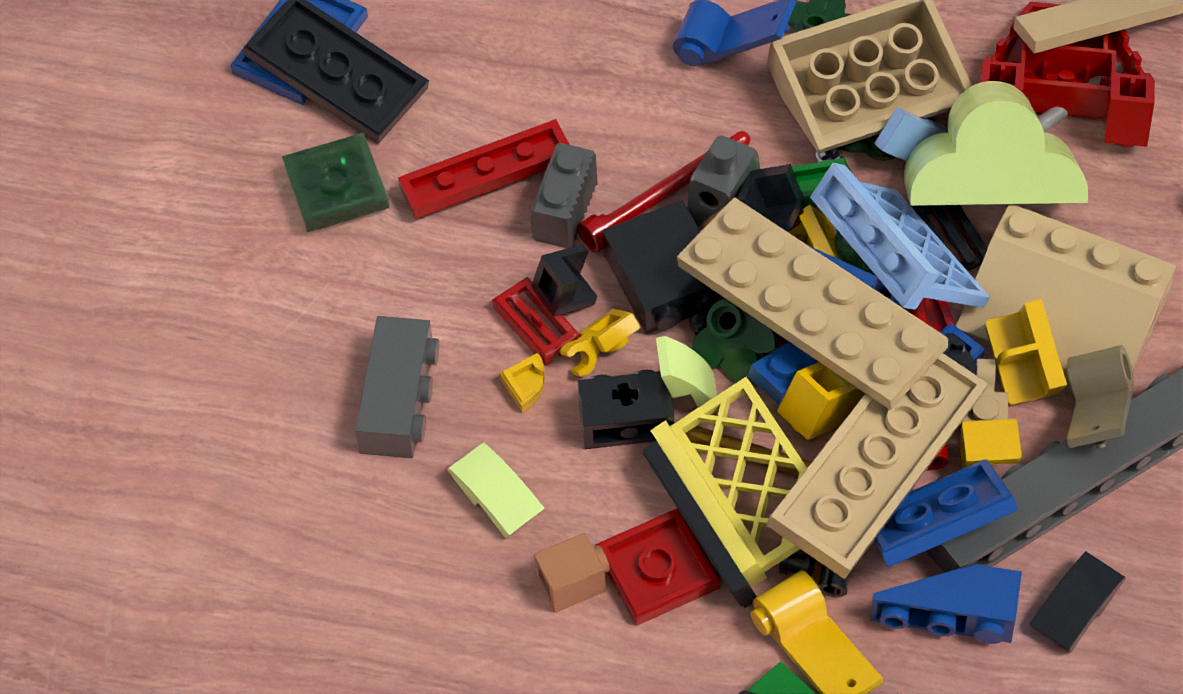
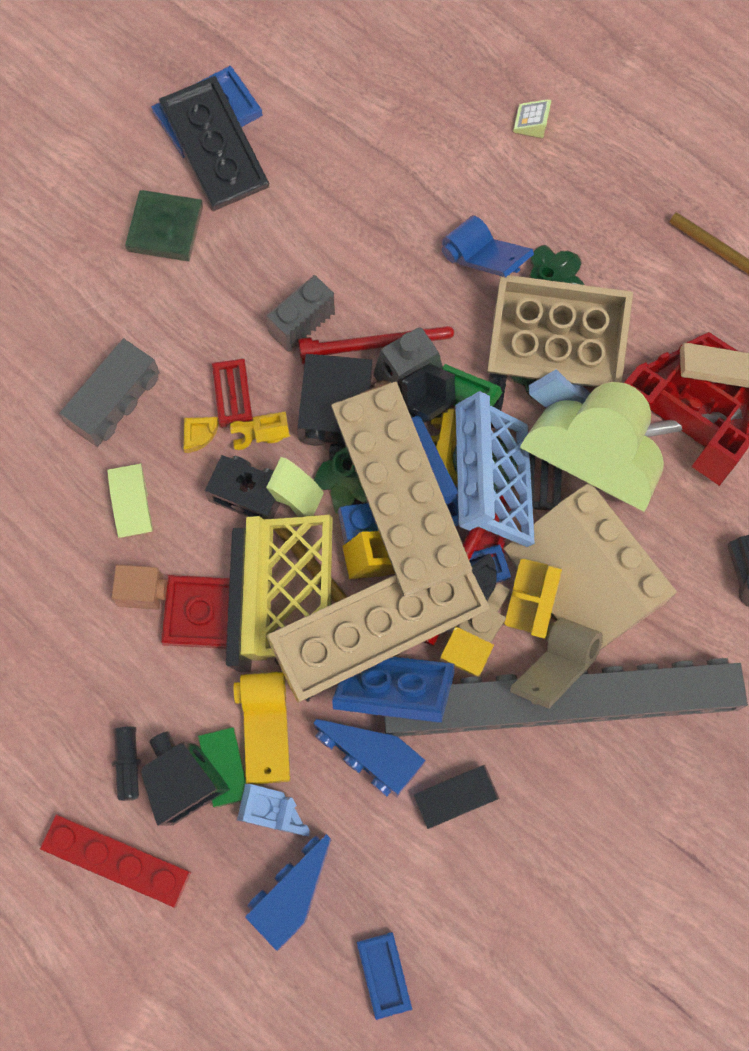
camera: 25 degrees right, 15 degrees up
(481, 169) = (263, 265): red plate -> none
(560, 281) = (263, 376): black panel -> none

